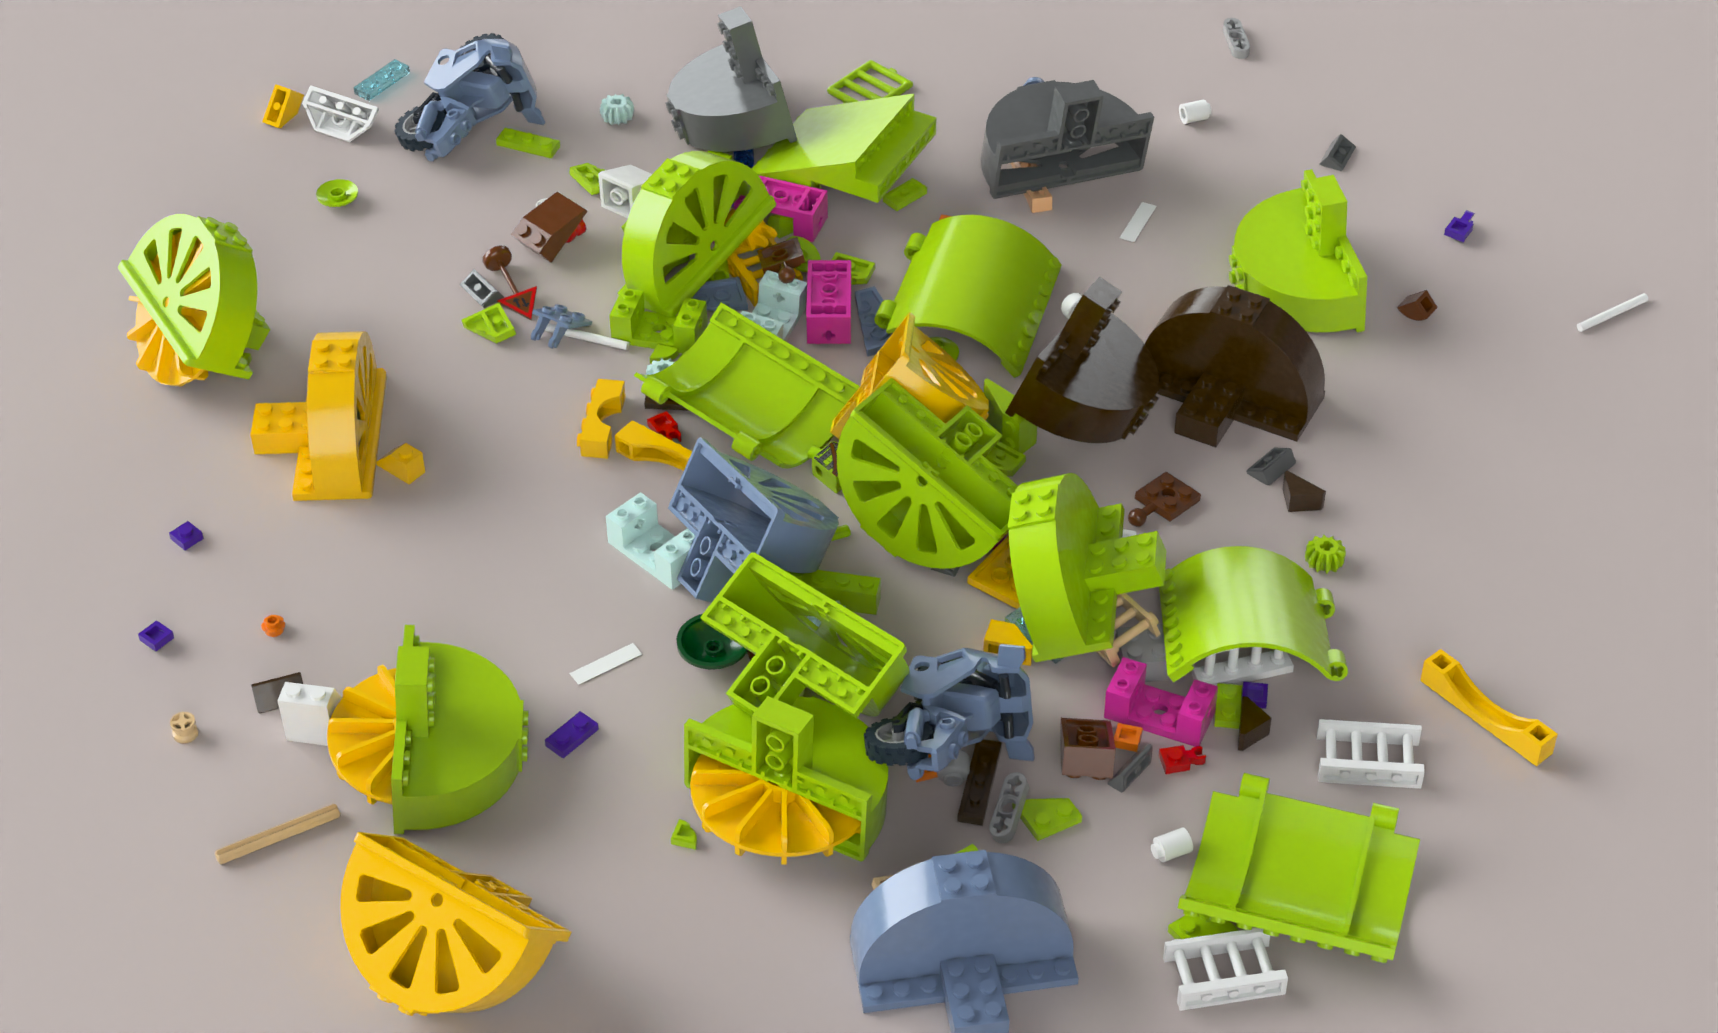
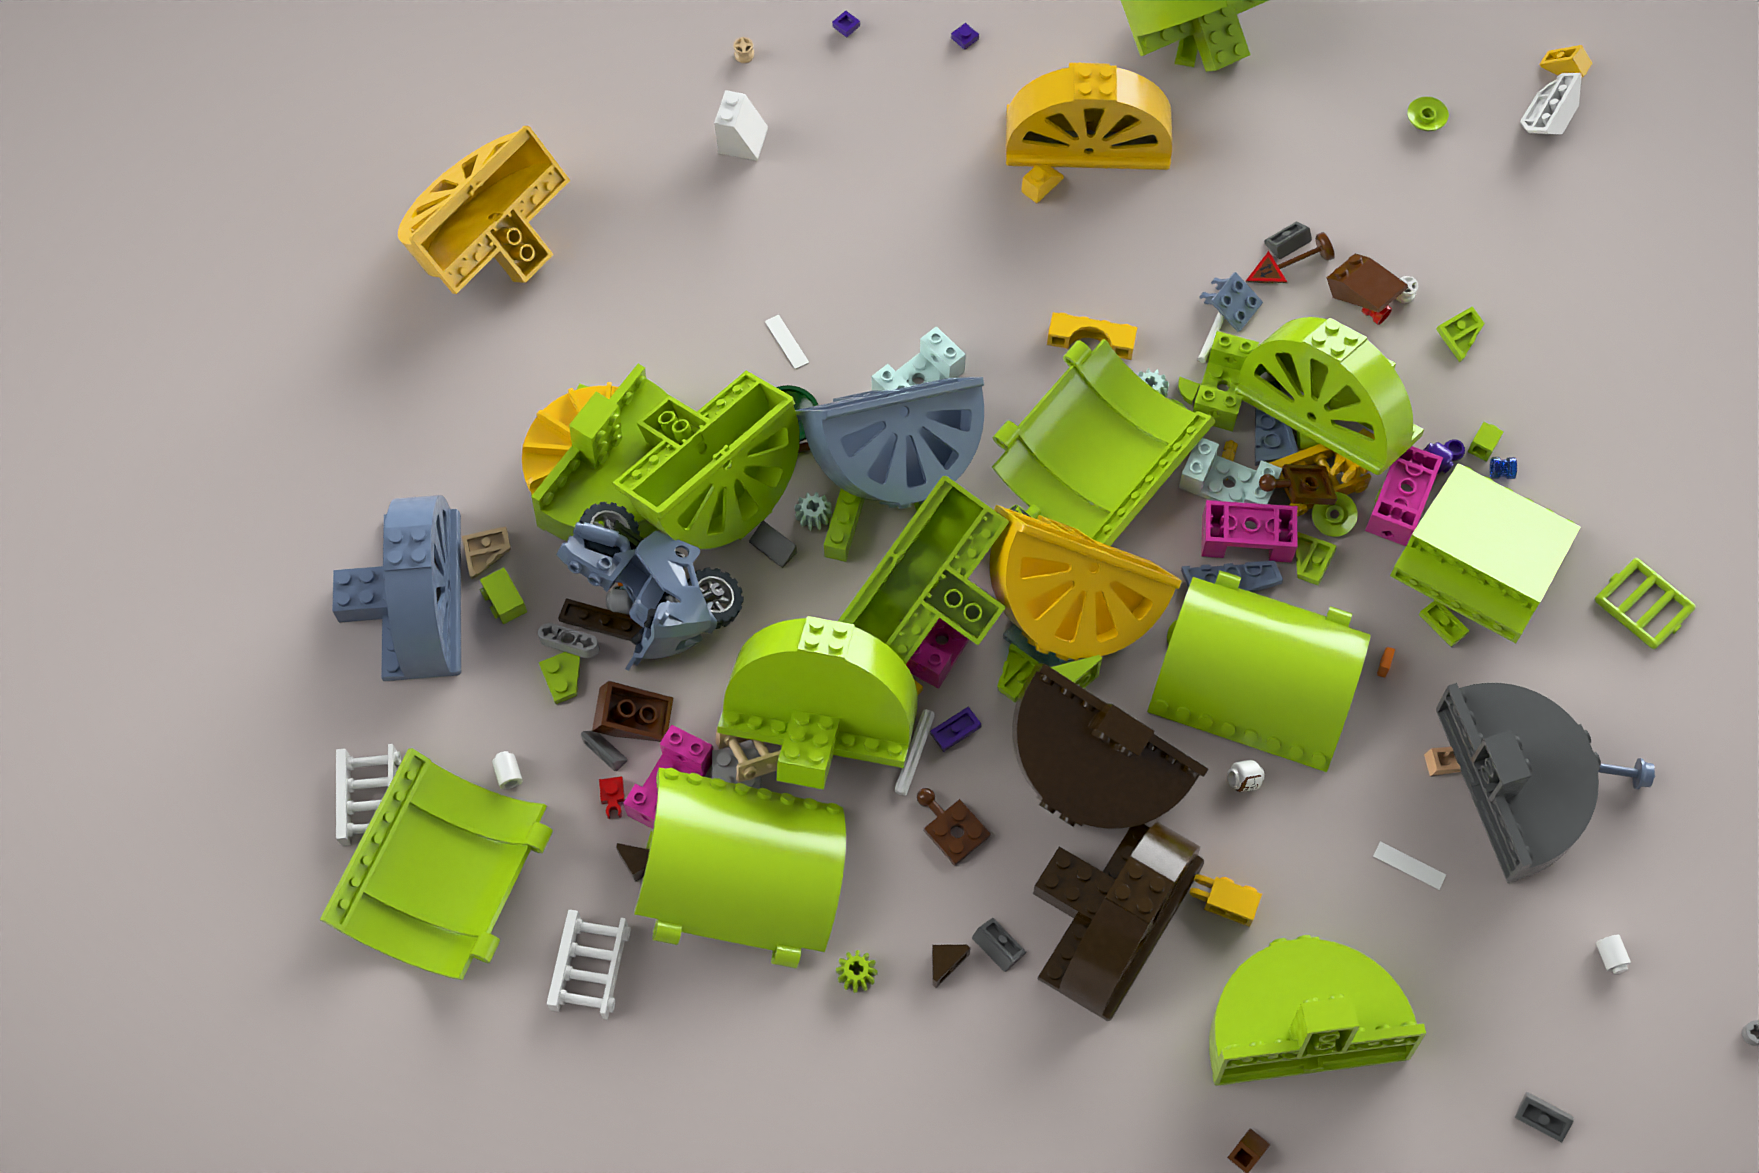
camera: 95 degrees right, 20 degrees up
(267, 692) = (772, 110): slope -> none
(273, 625) = (852, 102): orange plate -> none
(277, 833) = (627, 119): tan axle -> none
(381, 80) = (1624, 145): clear light blue plate -> none
(431, 735) = (696, 206): lime piece -> none
(471, 88) = (1574, 206): sand blue piece -> none
(490, 323) = (1232, 246): lime wing -> none
(528, 142) = (1524, 274): lime plate -> none
(571, 734) = (705, 314): dark purple plate -> none
(616, 109) = (1580, 351): light aqua gear -> none
(621, 187) = (1437, 359): white slope -> none
(643, 444) = (1052, 370): yellow arch -> none
(730, 94) = (1570, 431): dark grey piece -> none
(1128, 737) = (638, 750): orange plate -> none
(1524, 735) = (598, 1107): yellow arch -> none

